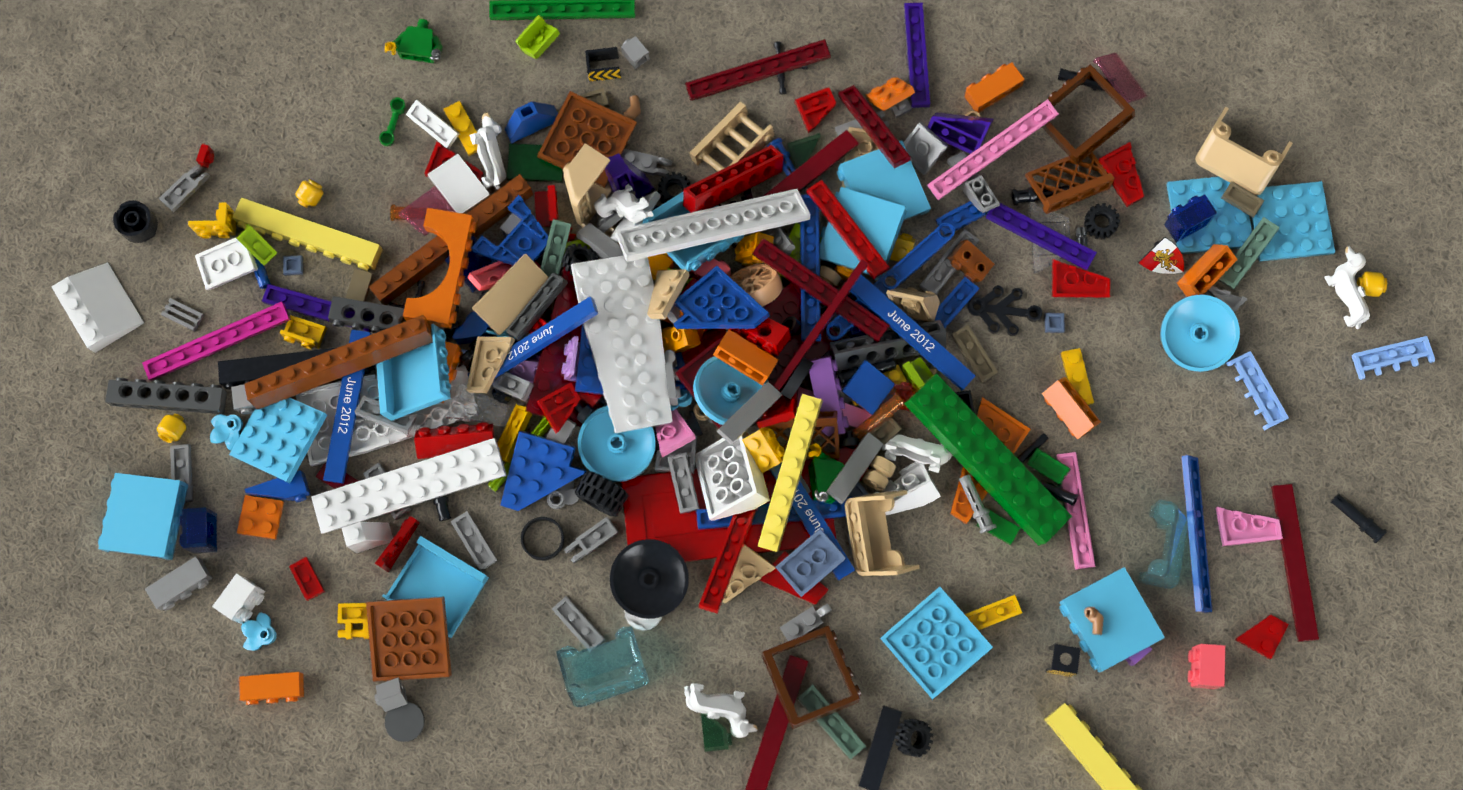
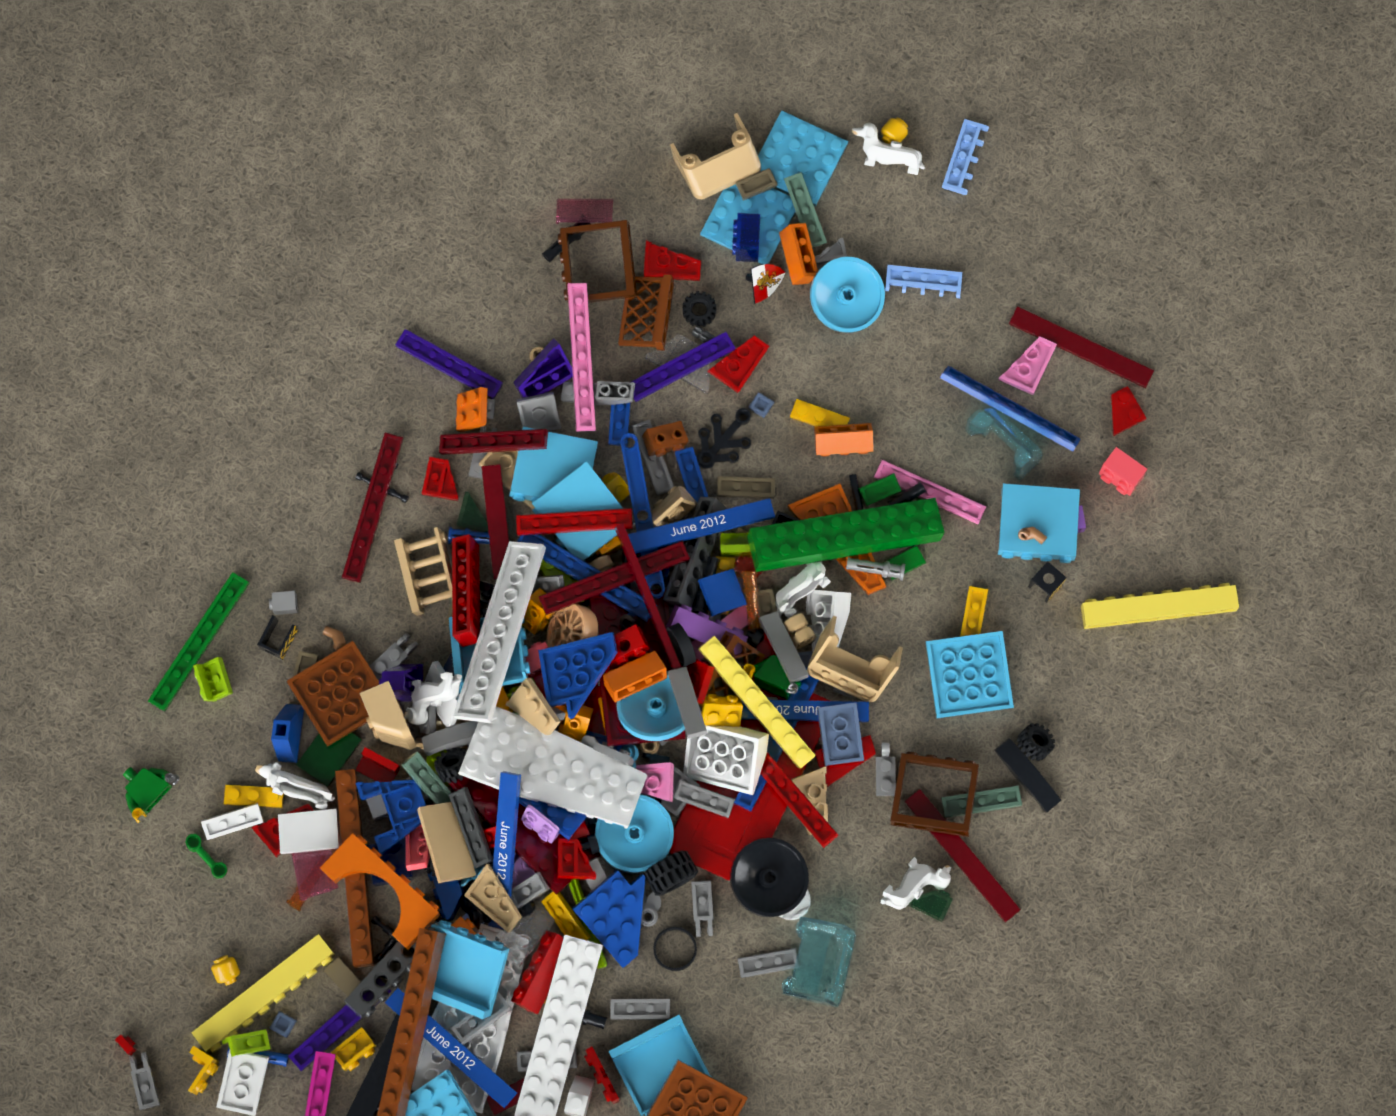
camera: 60 degrees left, 0 degrees up
(668, 181) = (429, 637): black tyre -> none
(994, 87) = (522, 319): orange brick -> none
(1030, 195) = (639, 353): black pin -> none
(1365, 524) = (1086, 271): black pin -> none

